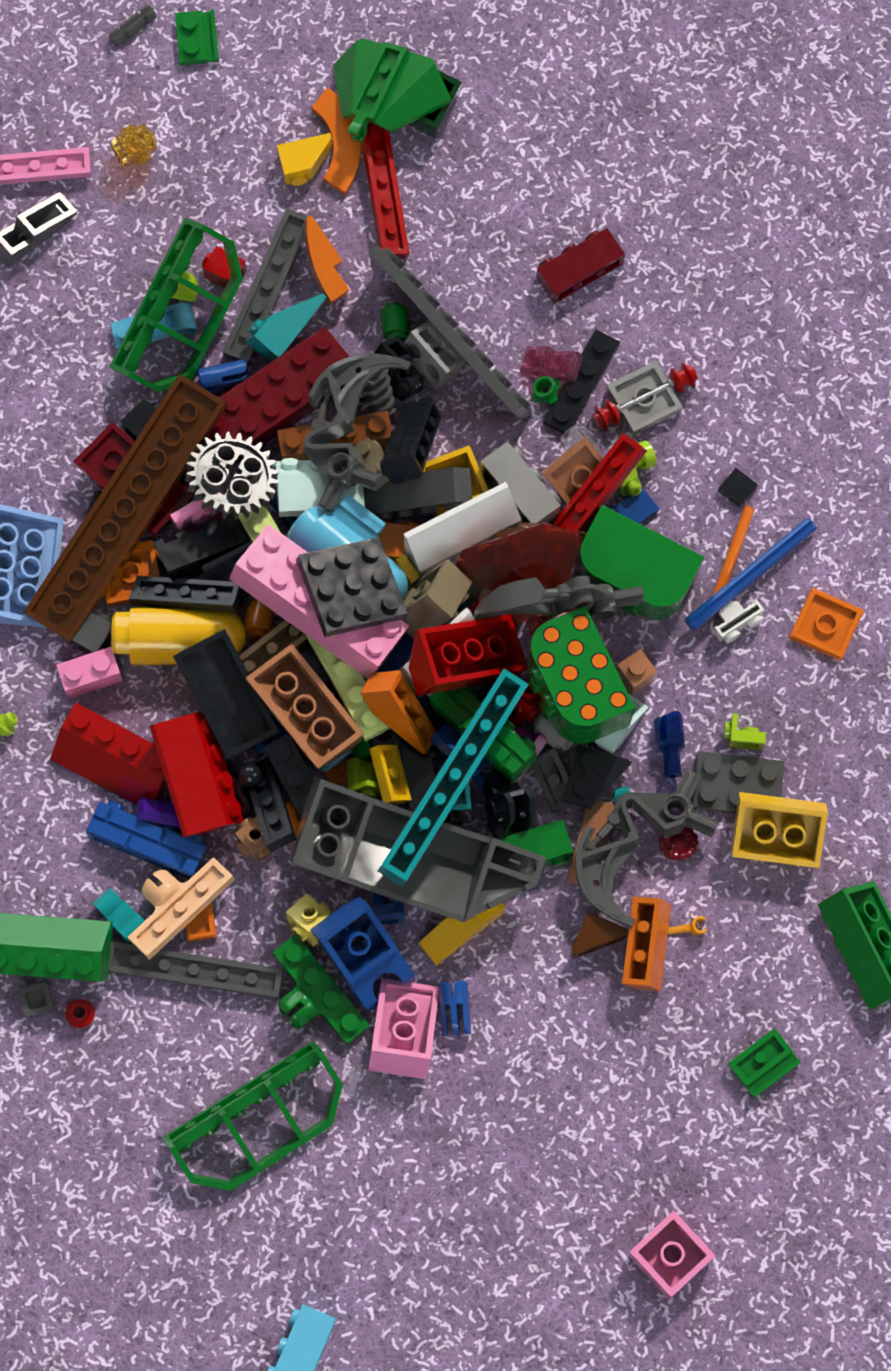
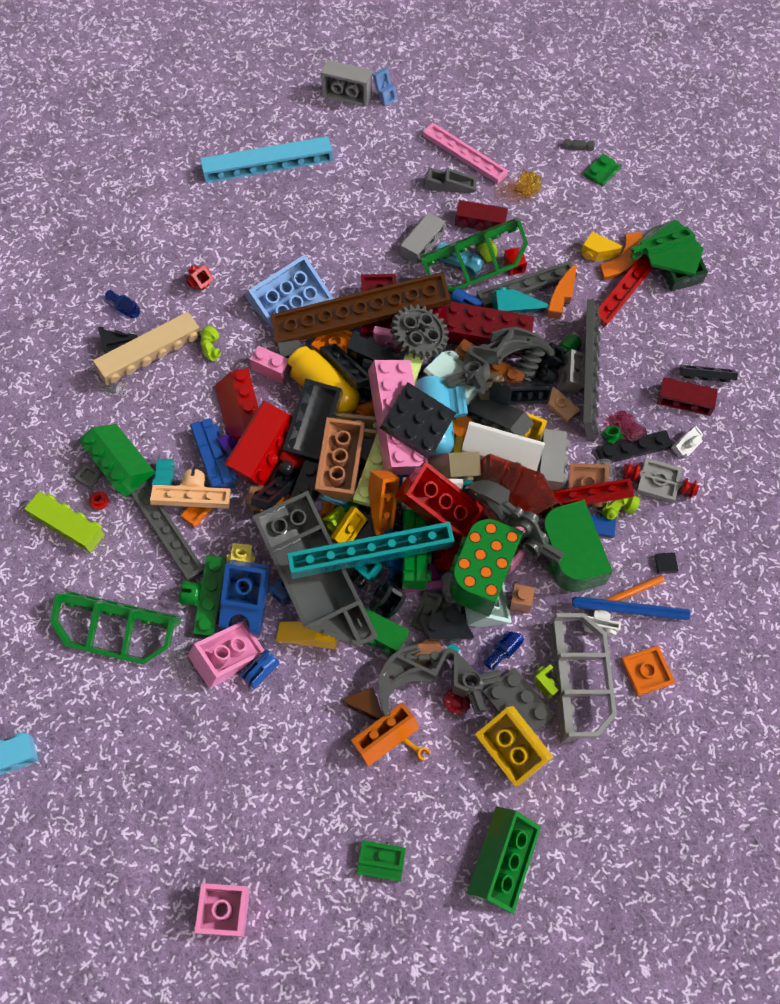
camera: 45 degrees right, 10 degrees down
(73, 1072) = (64, 521): none -> lime brick
(83, 340) = (422, 238): none -> light grey brick
(123, 244) = (479, 215): none -> dark red brick
(249, 757) = (296, 461): none -> red bracket
(458, 405) = (562, 405): none -> light nougat plate
(574, 212) = (708, 373): none -> black plate
(632, 322) = (688, 442): none -> white piece
(747, 707) = (562, 669): none -> light grey plate

